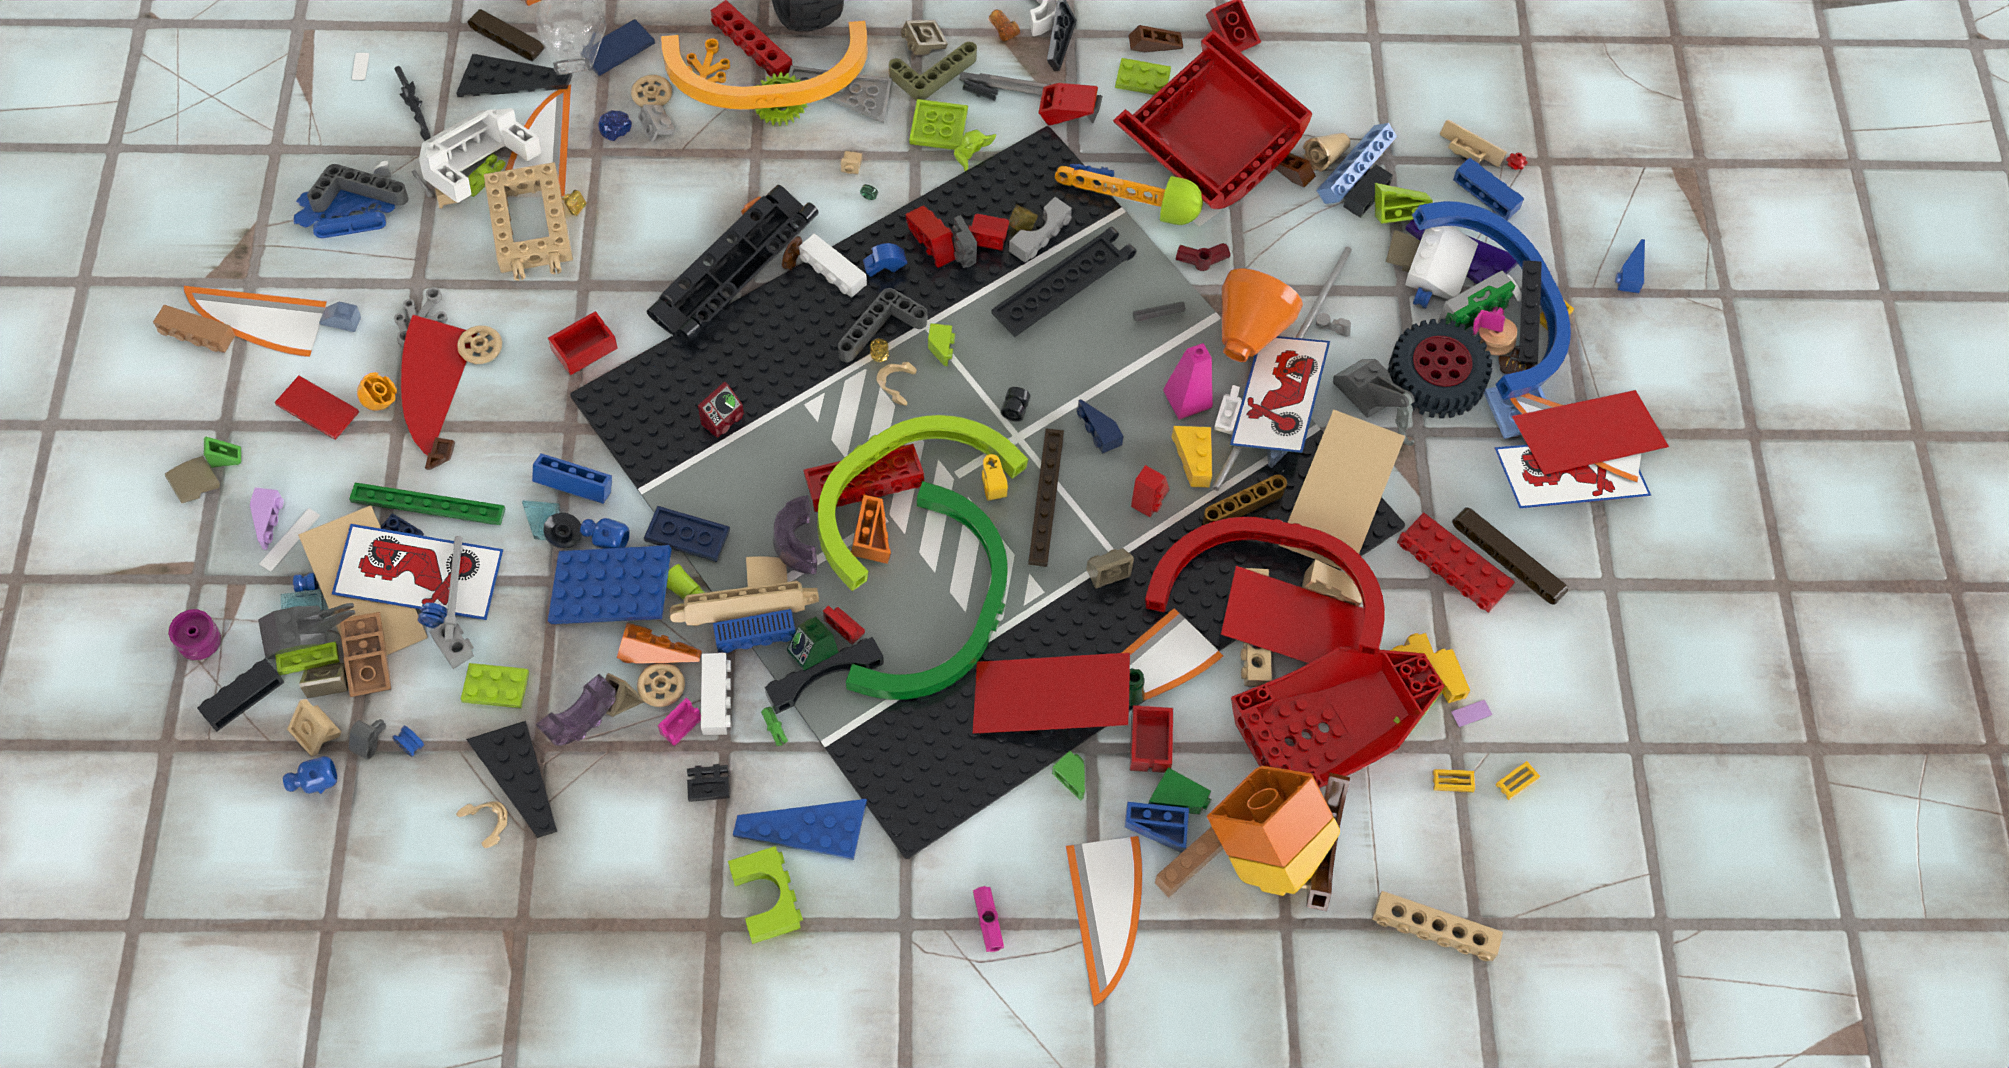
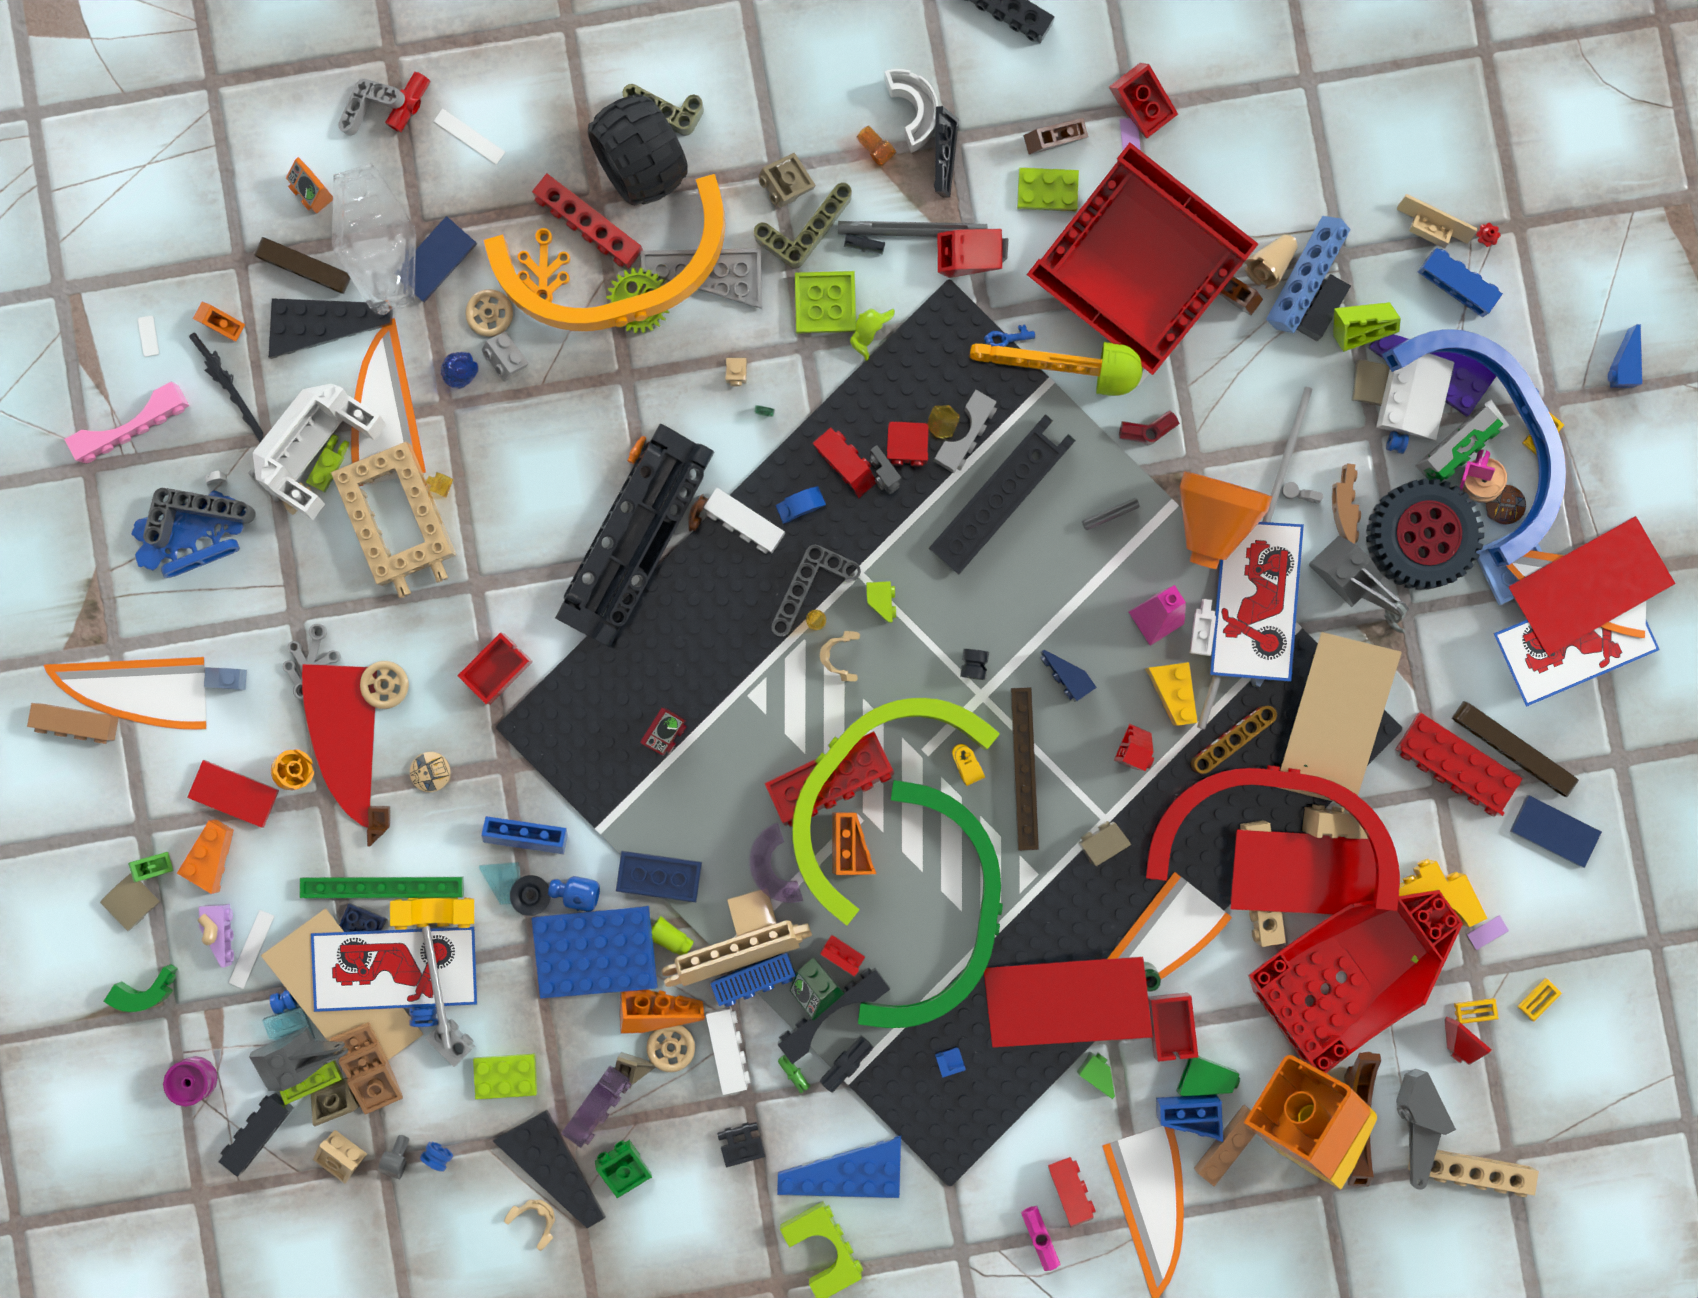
camera: 10 degrees left, 25 degrees up
(179, 560) = (131, 1000): none -> green arch
(258, 506) = (210, 930): none -> tan arm
(276, 451) = (208, 856): none -> orange wedge
(287, 129) = (163, 403): none -> bright pink arch
(312, 776) = (353, 1209): blue piece -> none
(423, 61) = (218, 321): none -> orange slope
(473, 529) = (431, 910): none -> yellow brick
(500, 419) = (430, 771): none -> tan dish
(586, 783) = (622, 1168): none -> green plate
(679, 722) = (699, 1086): dark pink hinge -> none
(827, 721) = (846, 1064): none -> black piece
(928, 737) = (950, 1062): none -> blue panel
(1027, 879) = (1072, 1191): none -> wedge
(1369, 335) = (1346, 514): none -> medium nougat slope
(1392, 860) = (1427, 1120): none -> dark grey slope
(1438, 798) = (1463, 1043): none -> red slope
(1530, 312) = (1520, 450): black plate -> none
(1544, 633) = (1555, 831): none -> dark blue tile

